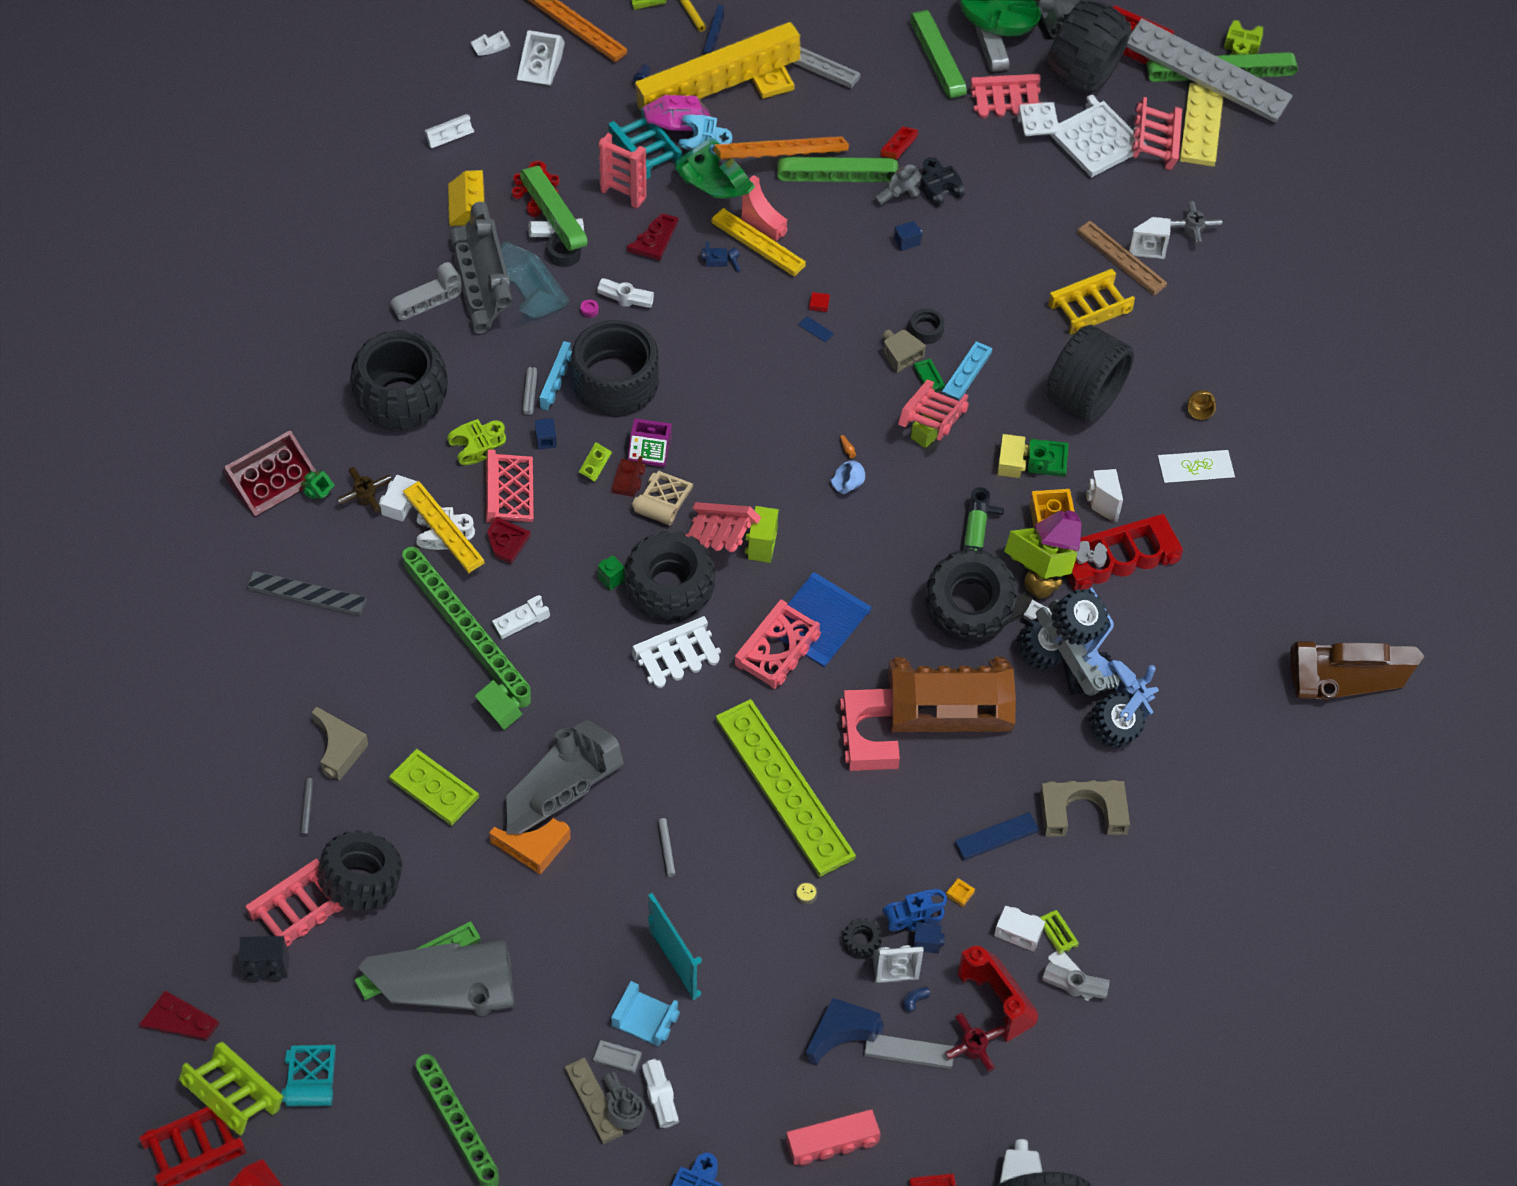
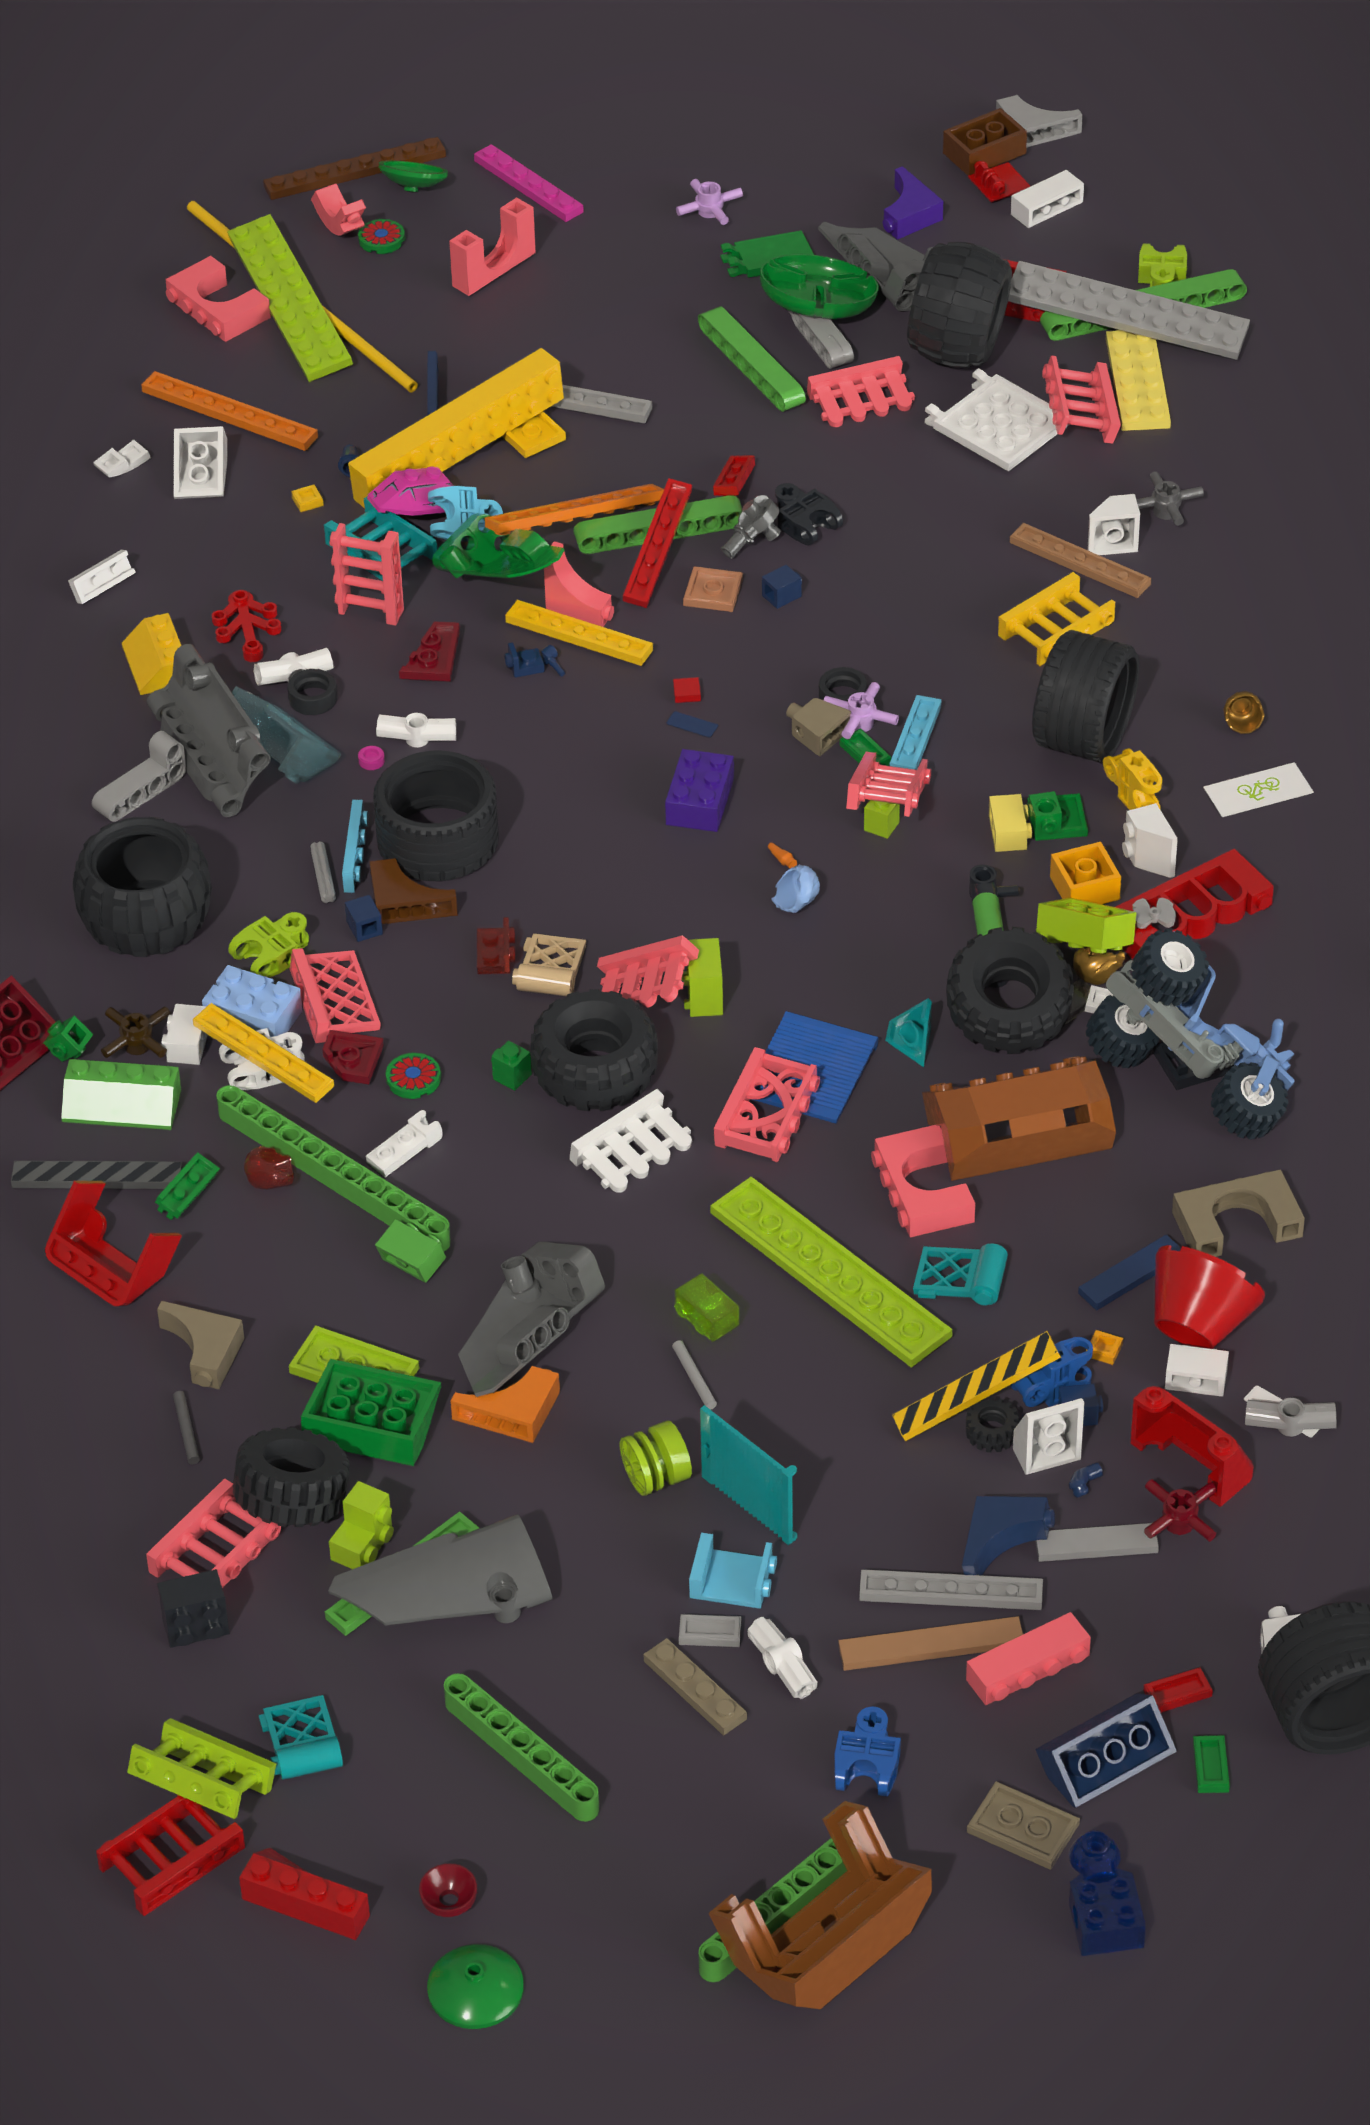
camera: 10 degrees left, 10 degrees down
(179, 1017) = (95, 1707): dark red wing -> none
(285, 662) = (82, 1253): none -> red windscreen
(340, 535) = (120, 1094): none -> slope
(363, 617) = (186, 1186): none -> green hinge
(400, 921) = (364, 1527): none -> lime brick
(422, 616) = (268, 1168): none -> clear red hair
(432, 827) = (372, 1411): none -> green slope
(451, 484) = (256, 1000): none -> light blue piece
(543, 564) = (413, 1075): none -> tile
(553, 208) = (284, 640): bright green beam -> none
(575, 425) = (405, 900): none -> reddish brown arch
(595, 461) = (445, 937): lime hips -> none
(606, 98) = (307, 498): none -> yellow tile
(616, 912) = (655, 1458): none -> lime wheel
(622, 1104) = (737, 1677): dark grey pin -> none
(650, 441) = (512, 895): slope -> none
(688, 797) = (706, 1307): none -> clear neon green brick
(768, 1106) = (927, 1643): none -> medium nougat tile
(795, 1066) = (951, 1589): none -> light grey plate
(804, 384) = (699, 790): none -> dark purple brick
(806, 893) = (900, 1390): light yellow tile -> none
(830, 185) = (657, 543): none -> red plate
(857, 909) = (976, 1386): none -> yellow tile
(860, 227) = (713, 589): none -> nougat tile
(891, 814) = (983, 1271): none -> teal piece
(896, 608) = (912, 1031): none -> teal slope
(934, 346) = (863, 711): none -> lavender bar
(1034, 877) = (1200, 1296): none -> red cone
(1038, 119) = (914, 411): white bracket -> none
(1060, 530) = (1105, 889): magenta slope -> none
(1066, 946) = (1244, 1367): lime tile -> none
(1109, 443) = (1134, 778): none -> yellow piece

